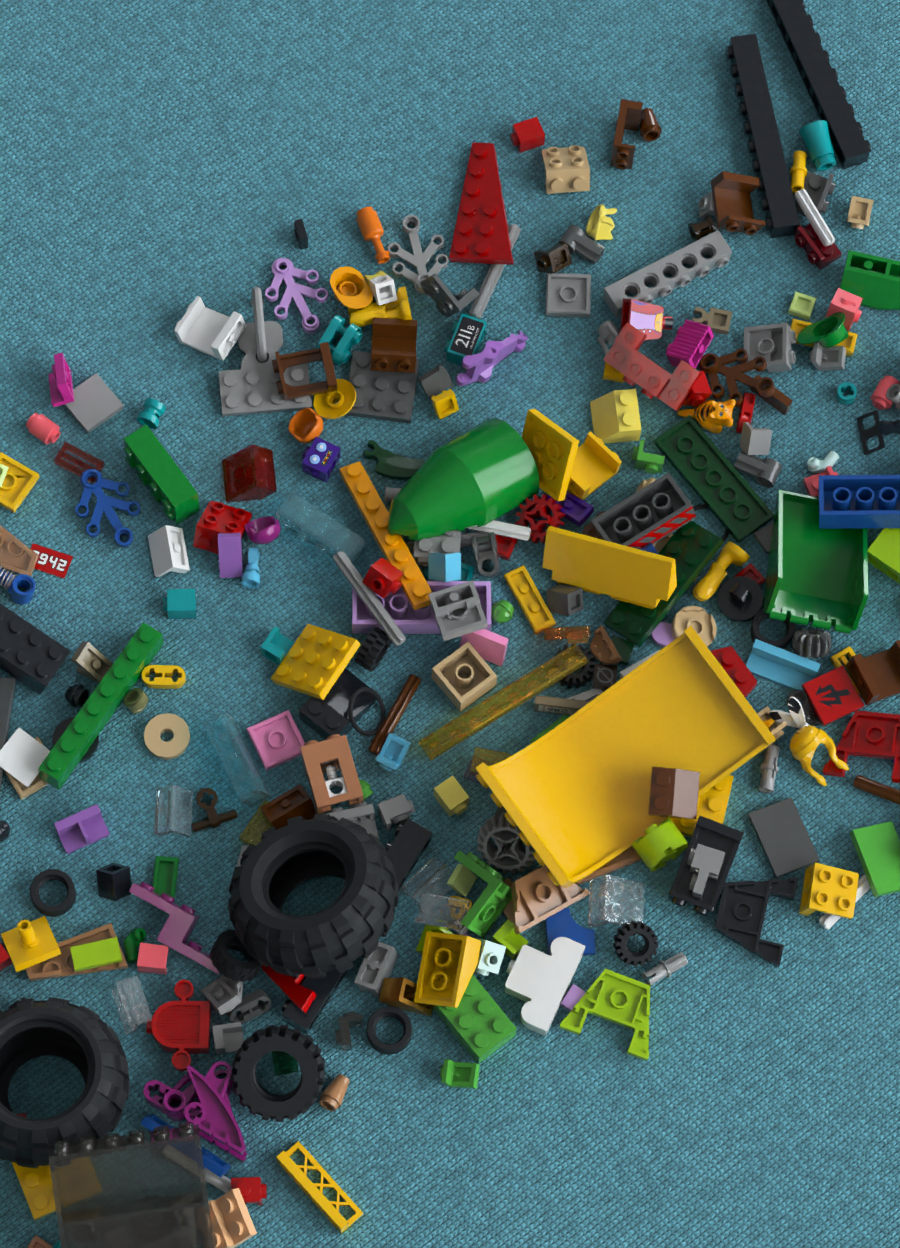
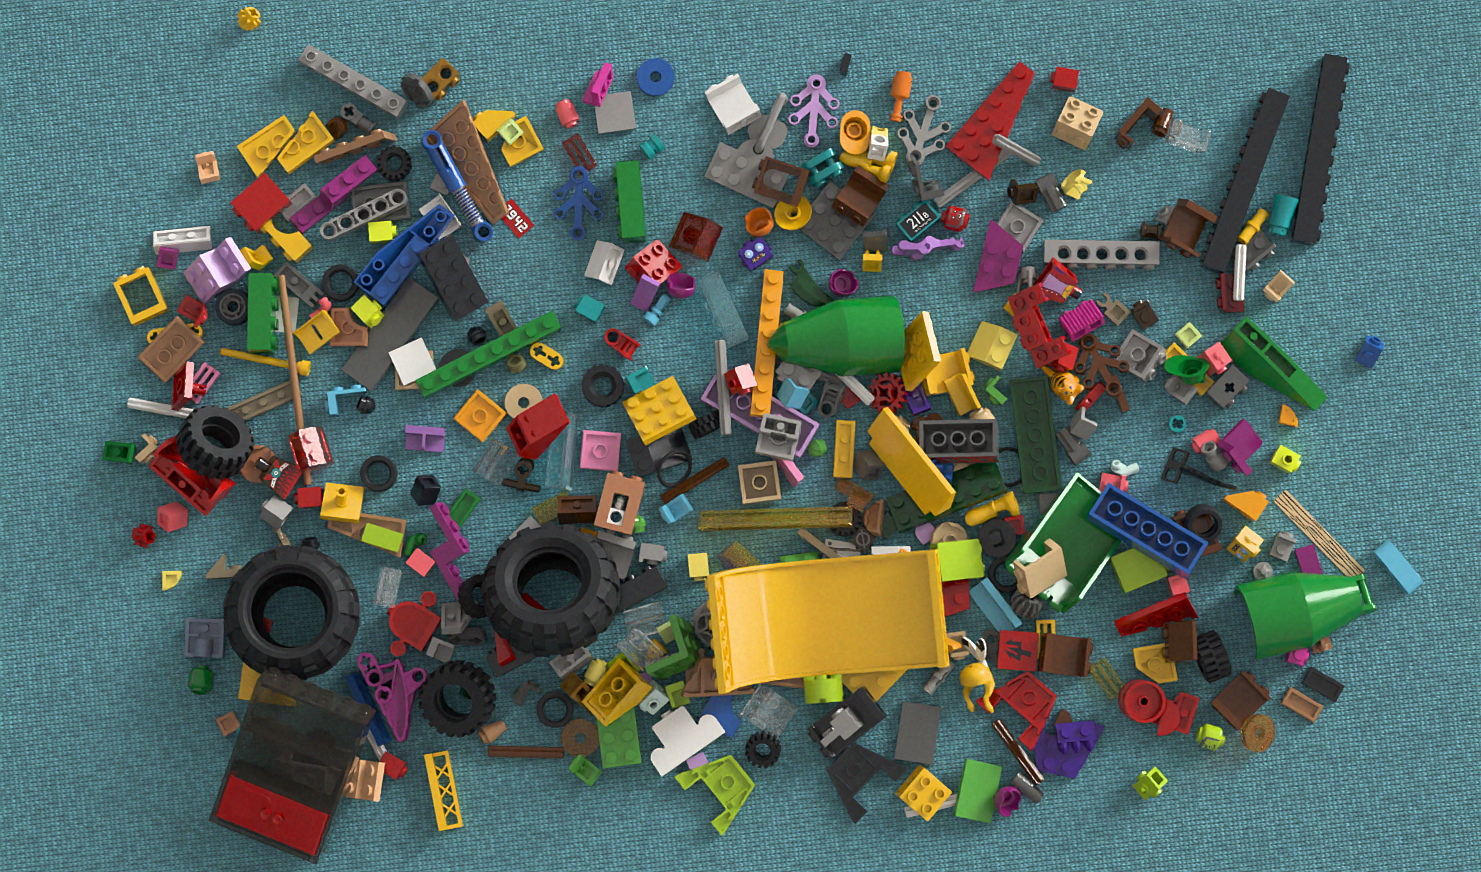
camera: 35 degrees right, 15 degrees up
(111, 336) = (655, 66): none -> blue tile
(128, 775) = (480, 415): none -> light orange tile
(198, 744) = (537, 427): none -> red slope
(235, 621) = (622, 343): none -> red piece
(240, 655) = (602, 371): none -> black tyre
(384, 1093) = (526, 751): none -> reddish brown axle
(409, 964) = (595, 672): none -> light yellow brick
(427, 438) = (843, 283): none -> magenta hair
(427, 1033) = (577, 726): none -> clear orange tile
(502, 318) = (955, 218): none -> red head
(522, 221) = (1016, 150): none -> light grey axle
(569, 333) = (998, 259): none -> magenta wing
(615, 477) = (961, 393): none -> yellow panel
(665, 968) = (773, 778): light grey axle -> none
(674, 793) = (852, 660): reddish brown slope -> none
(682, 125) = (1187, 137): none -> clear panel
(722, 634) = (960, 559): none -> lime panel
(746, 308) = (1144, 314): none -> dark brown bracket
(809, 598) = (1042, 572): none -> tan panel
(873, 343) = (1230, 377): none -> dark grey brick

